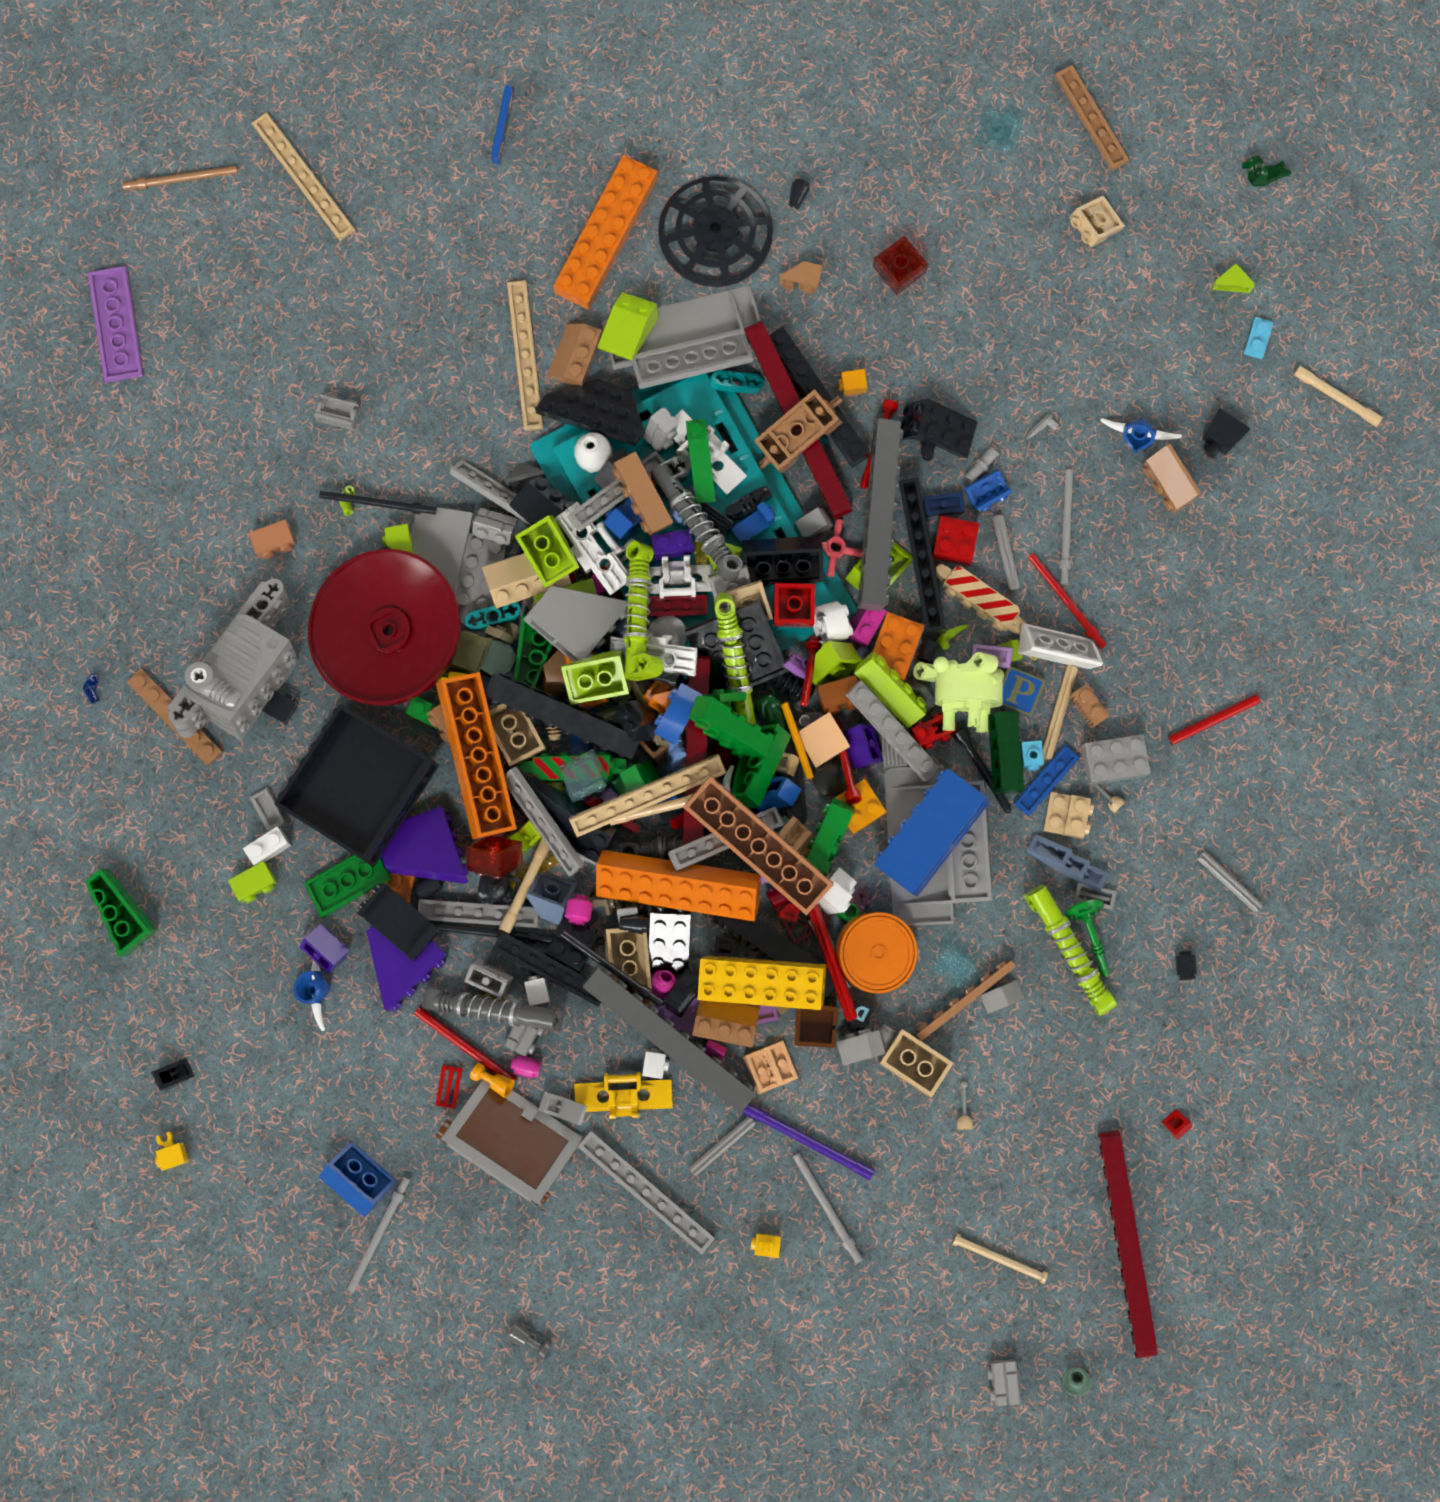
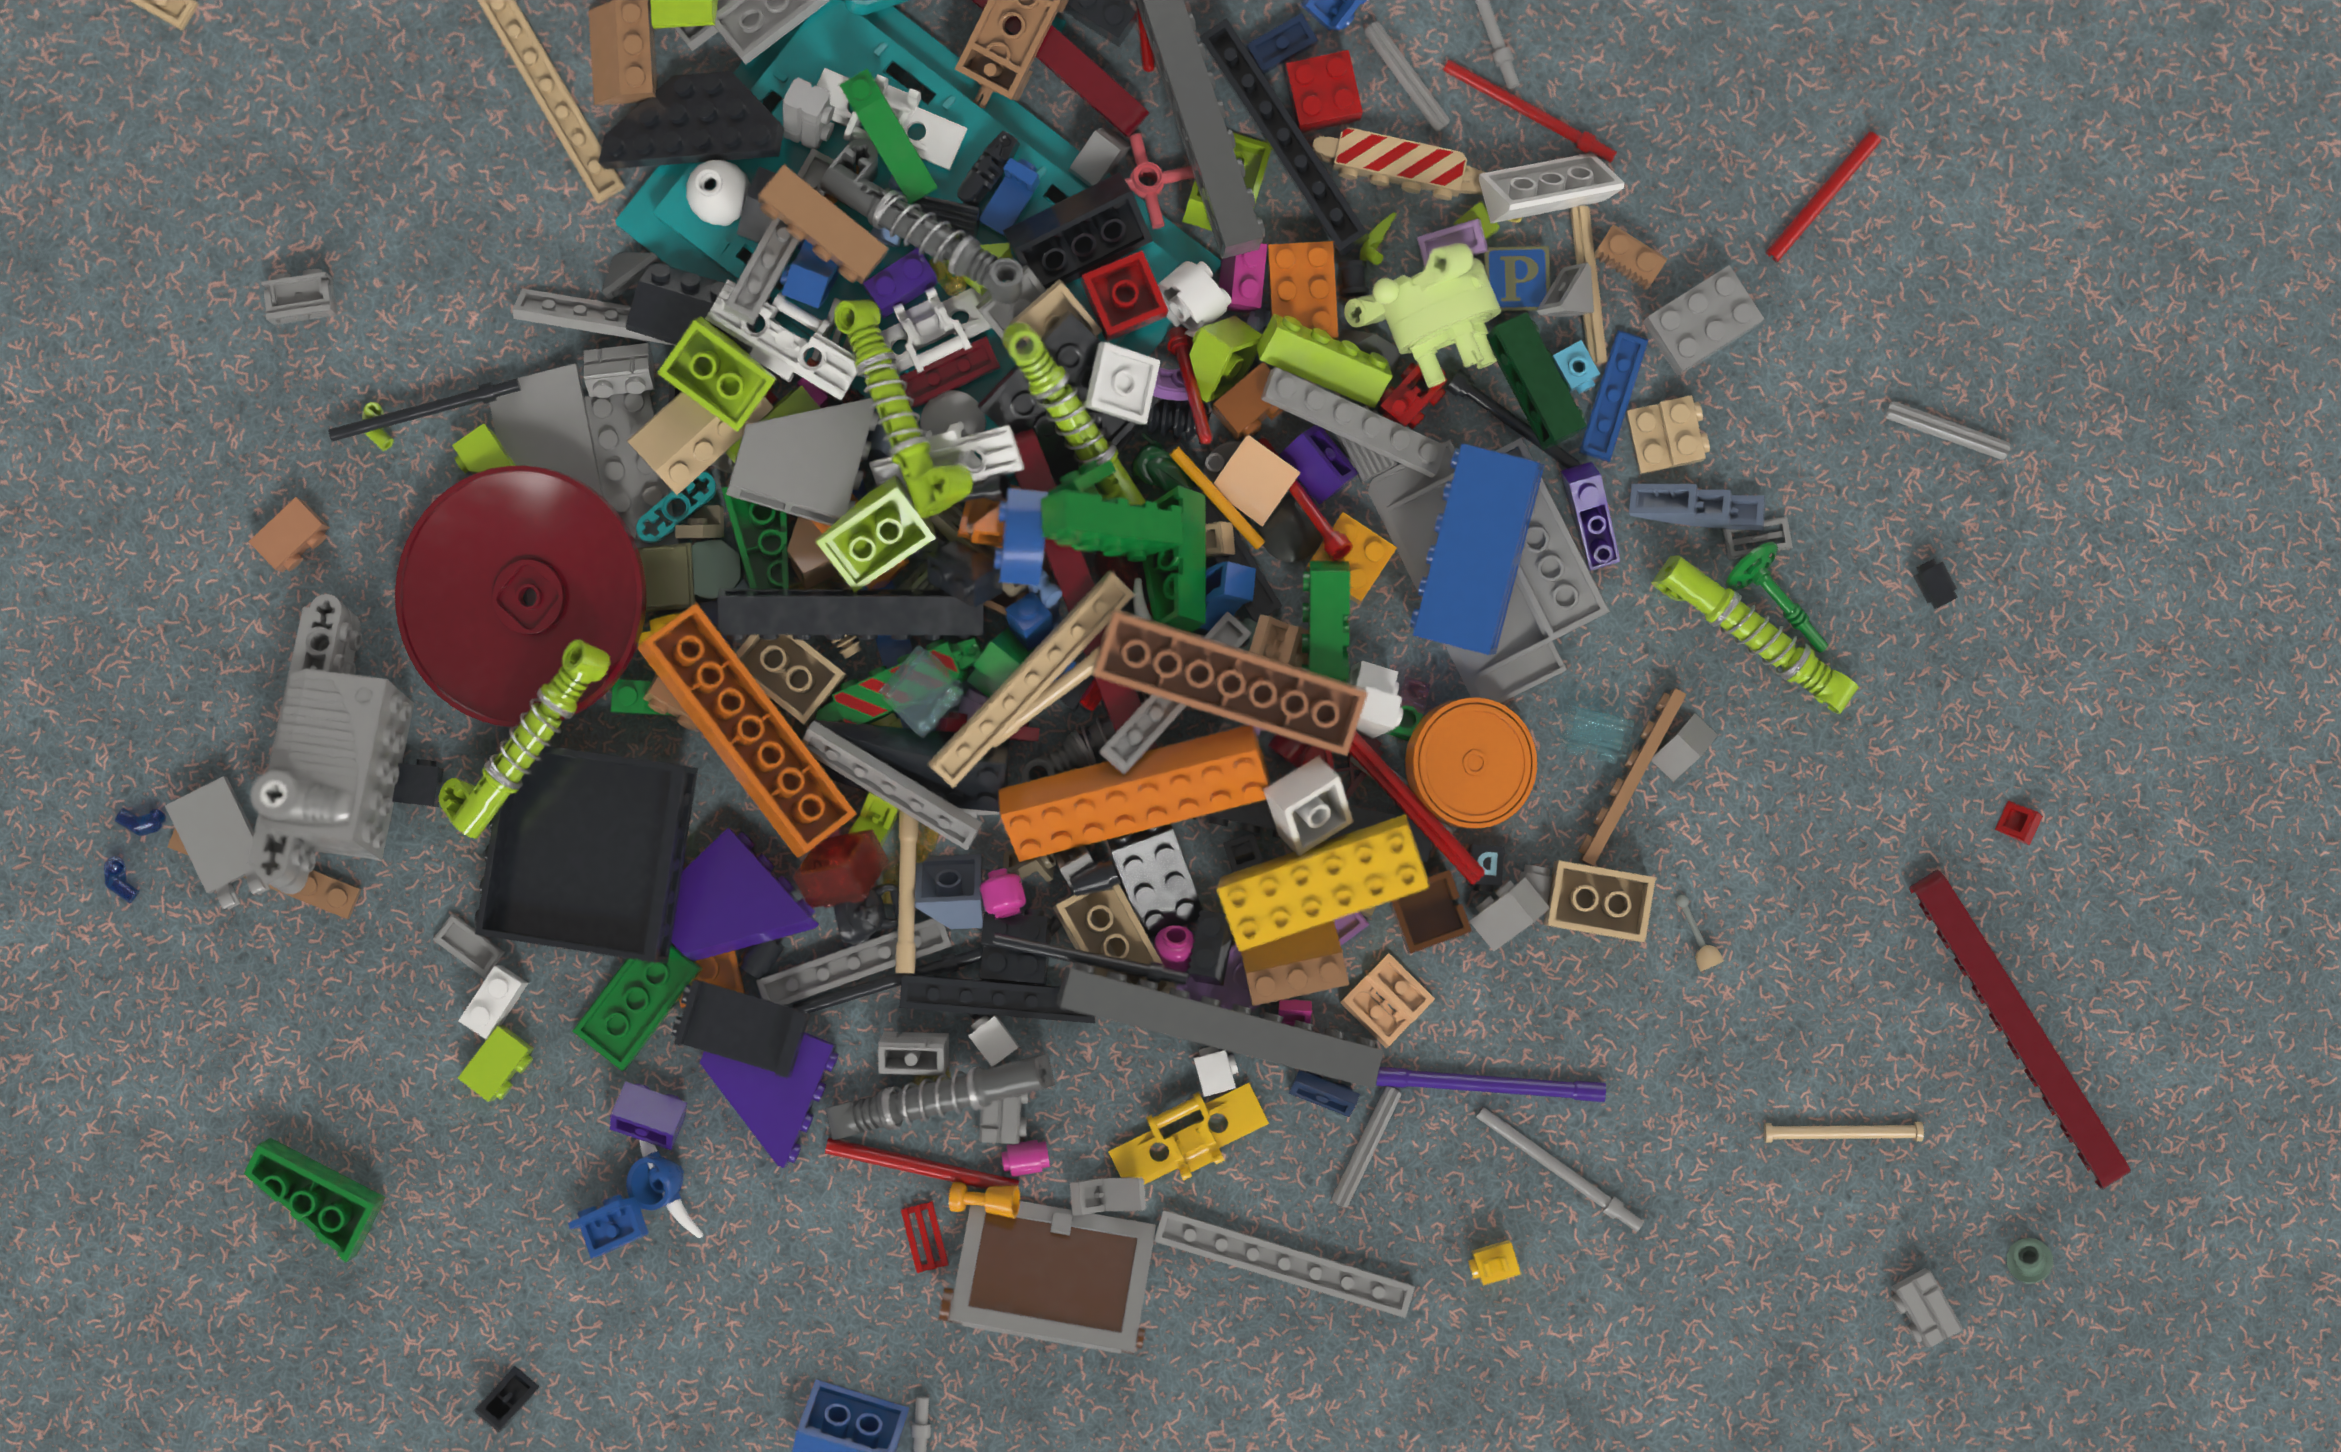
camera: 20 degrees left, 5 degrees up
(118, 663) = (143, 824): none -> clear blue arm
(155, 689) = (217, 839): none -> light grey tile
(275, 1001) = (611, 1225): none -> blue bracket
(306, 732) = (472, 806): none -> lime piece
(661, 762) = (1029, 620): none -> blue brick
(711, 1104) = (1316, 1090): none -> dark blue plate
(771, 652) = (1122, 383): none -> white plate
(772, 935) = (1308, 805): none -> white brick
(1005, 842) = (1591, 514): none -> dark purple slope
(1046, 712) = (1570, 293): none -> light grey slope
(1114, 802) = (1727, 386): tan hinge -> none

